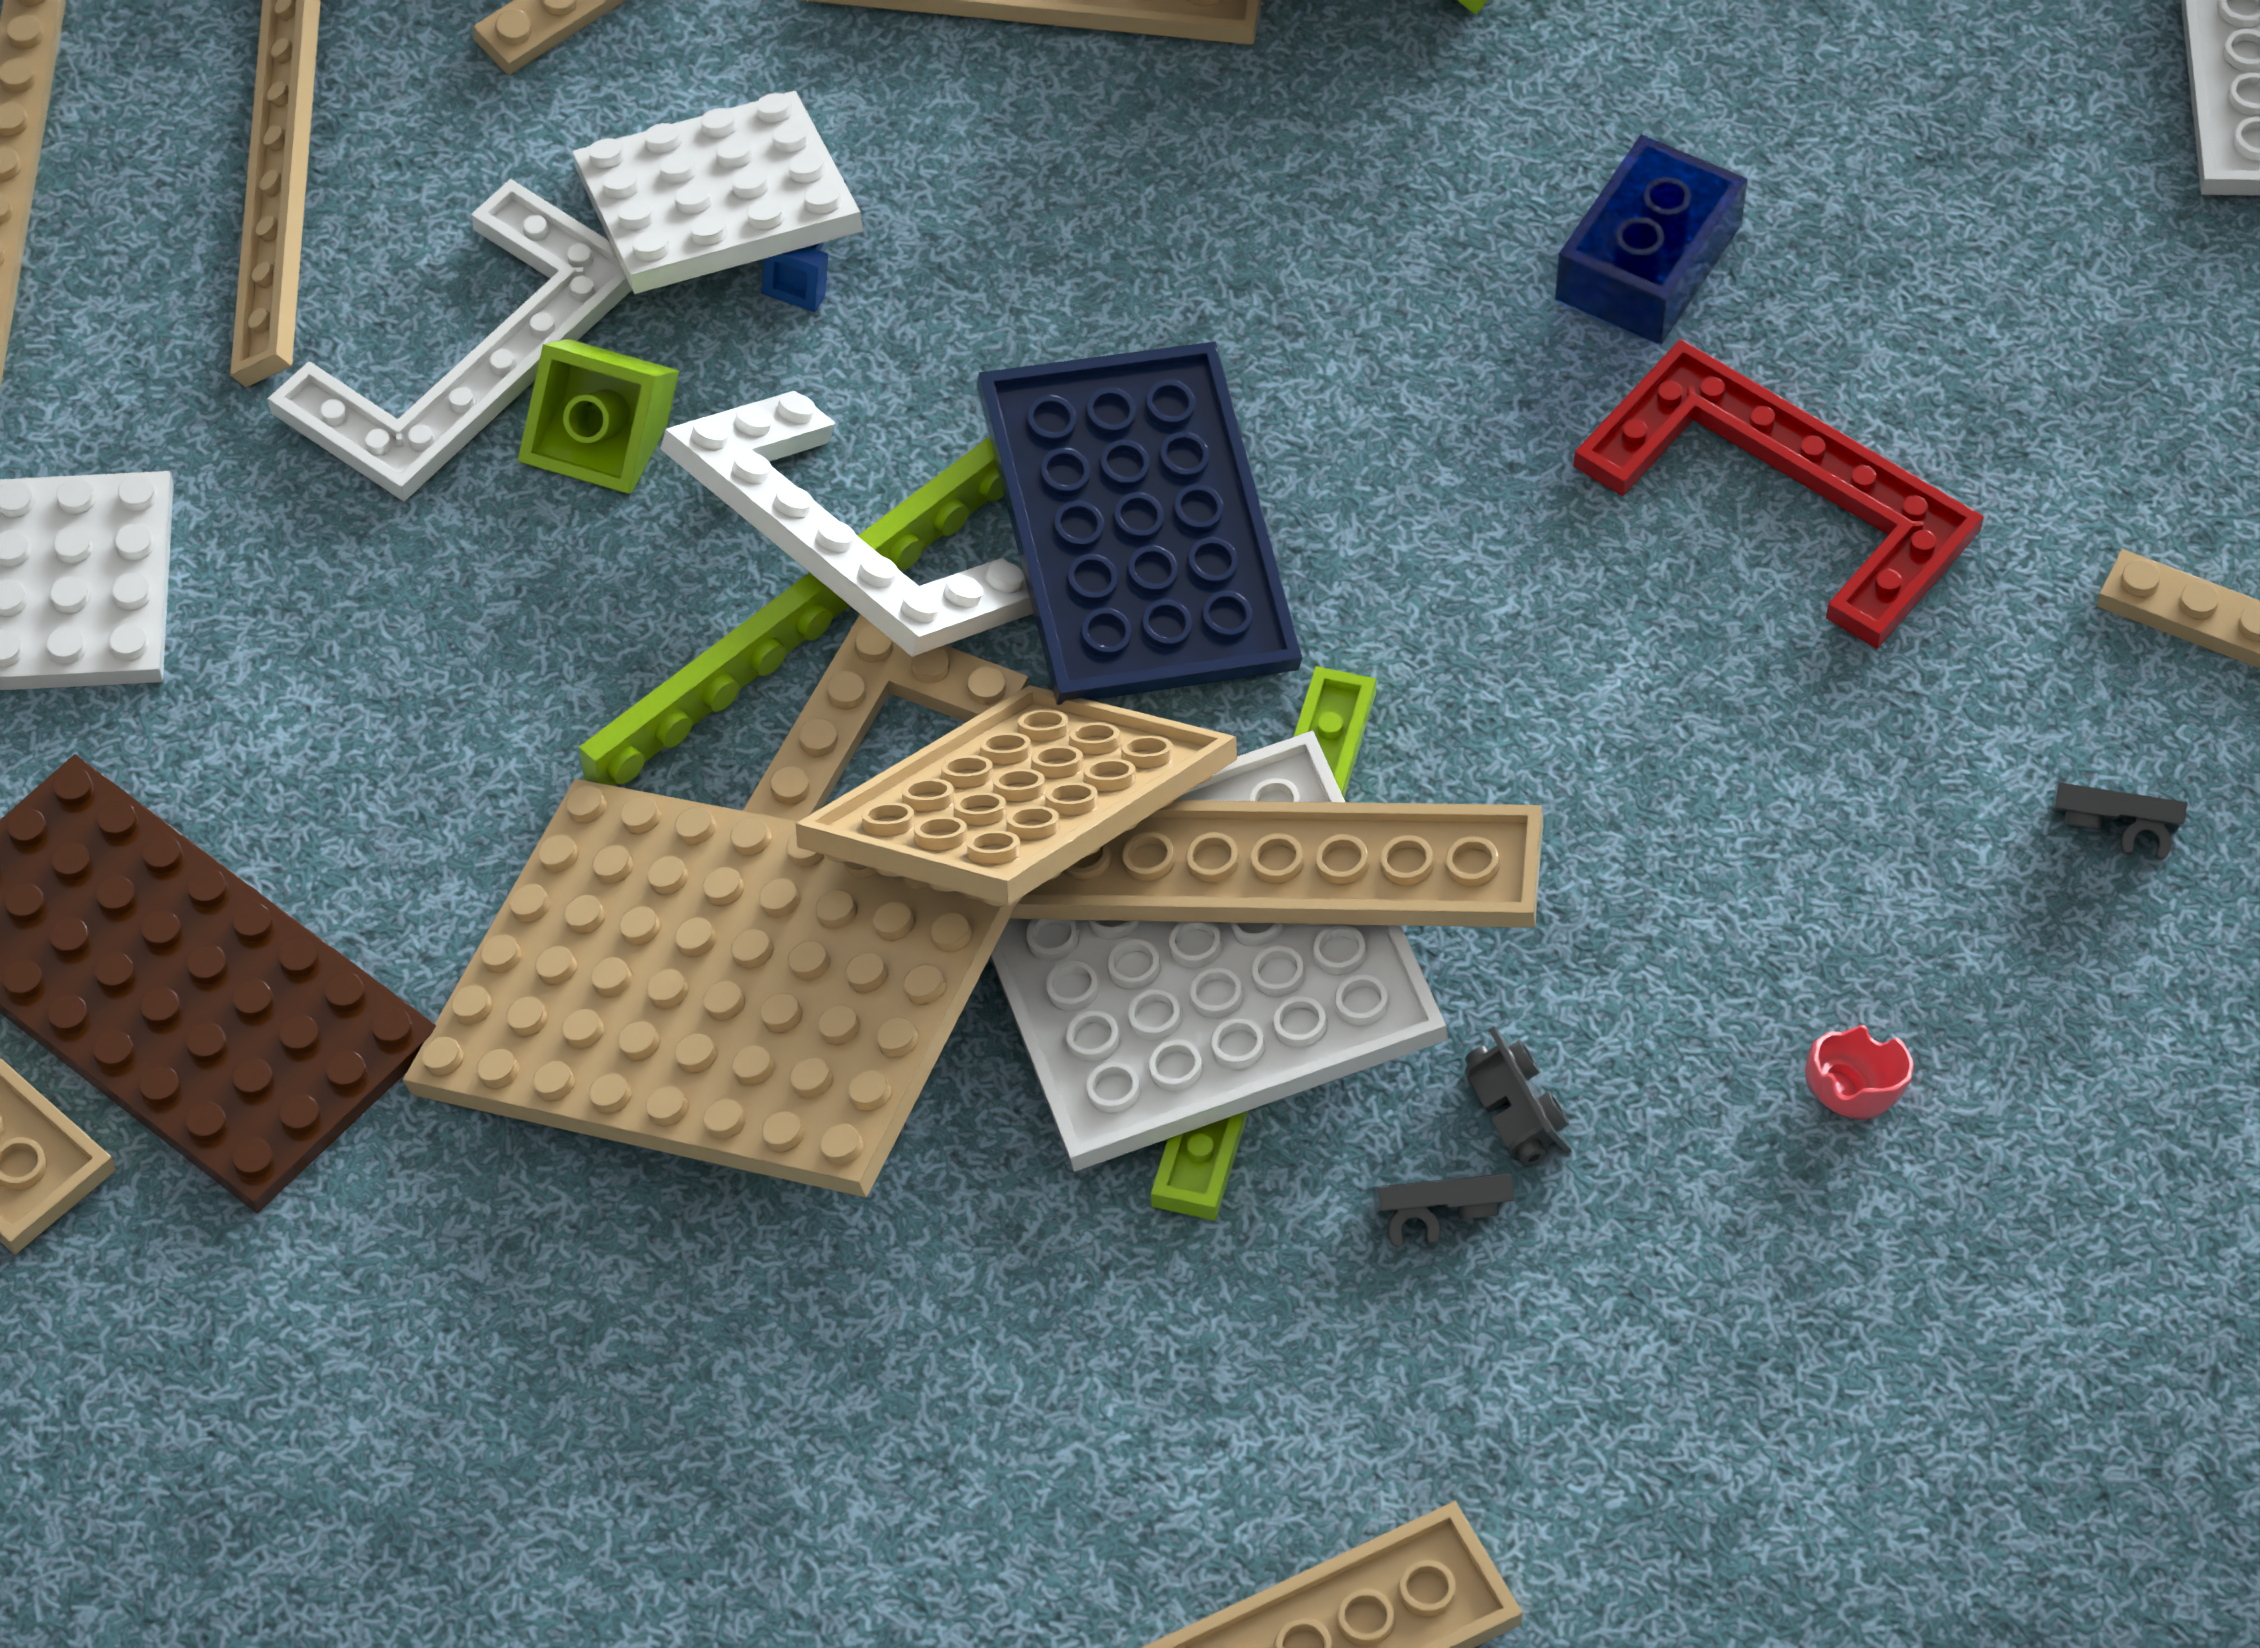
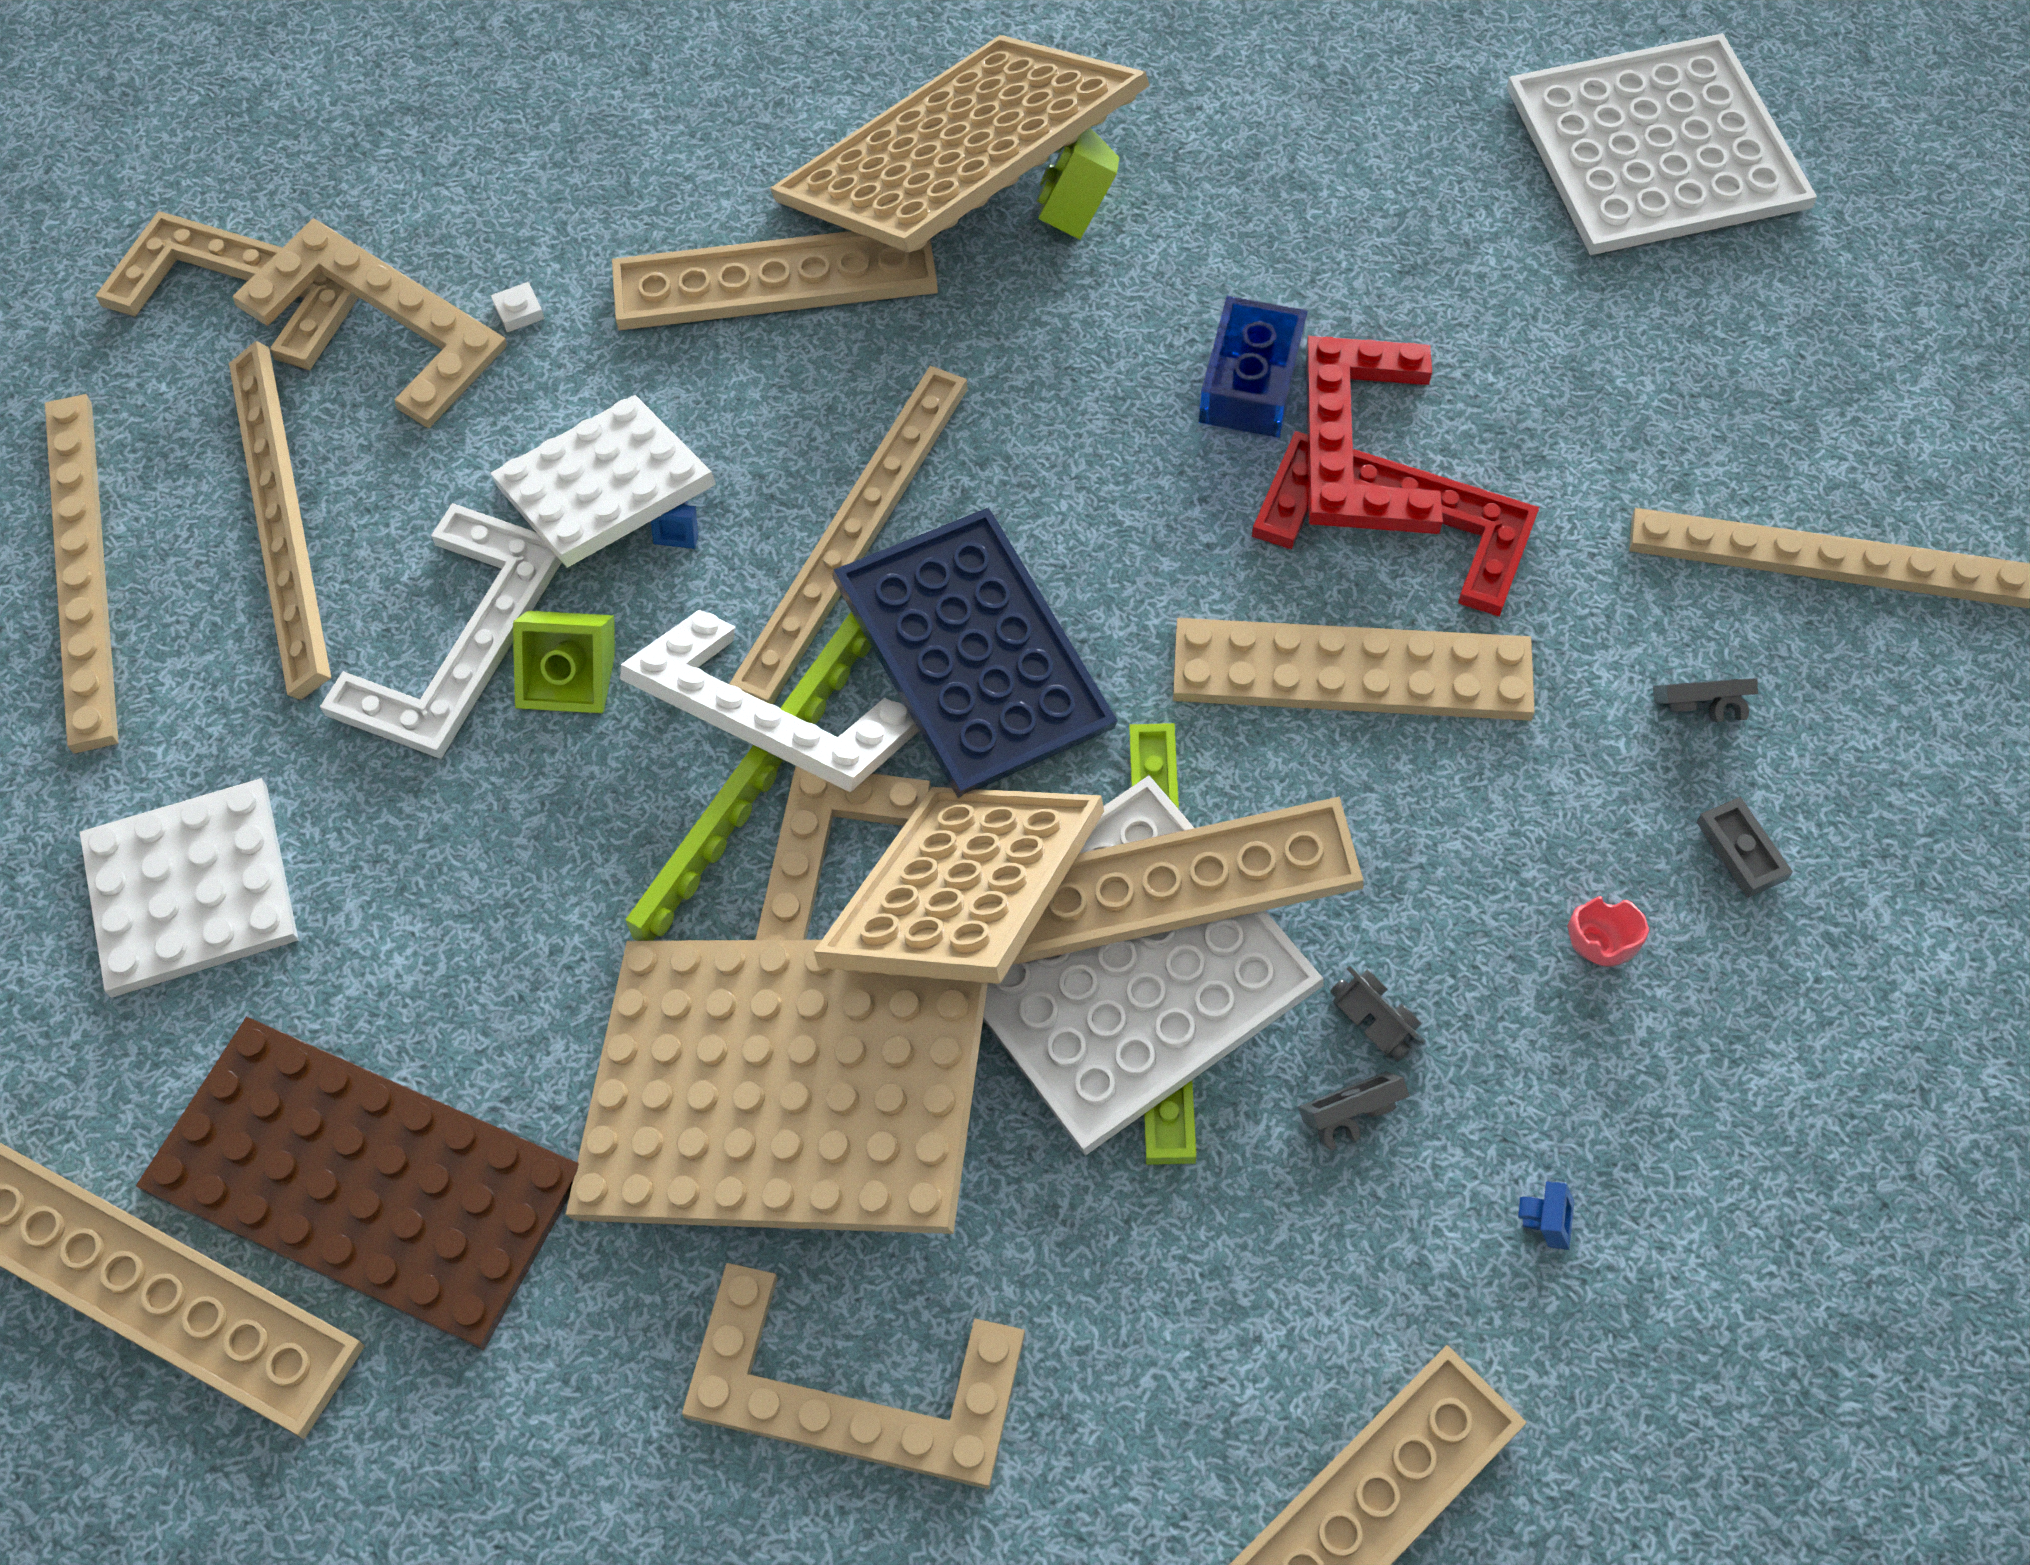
camera: 15 degrees left, 5 degrees up
(803, 1468) = (952, 1450): none -> tan plate
(1031, 334) = (849, 535): none -> tan plate
(1650, 669) = (1354, 669): none -> tan plate
(1651, 1388) = (1550, 1215): none -> blue tile
(1696, 427) = (1331, 486): none -> plate
(2092, 1016) = (1744, 847): none -> dark grey plate

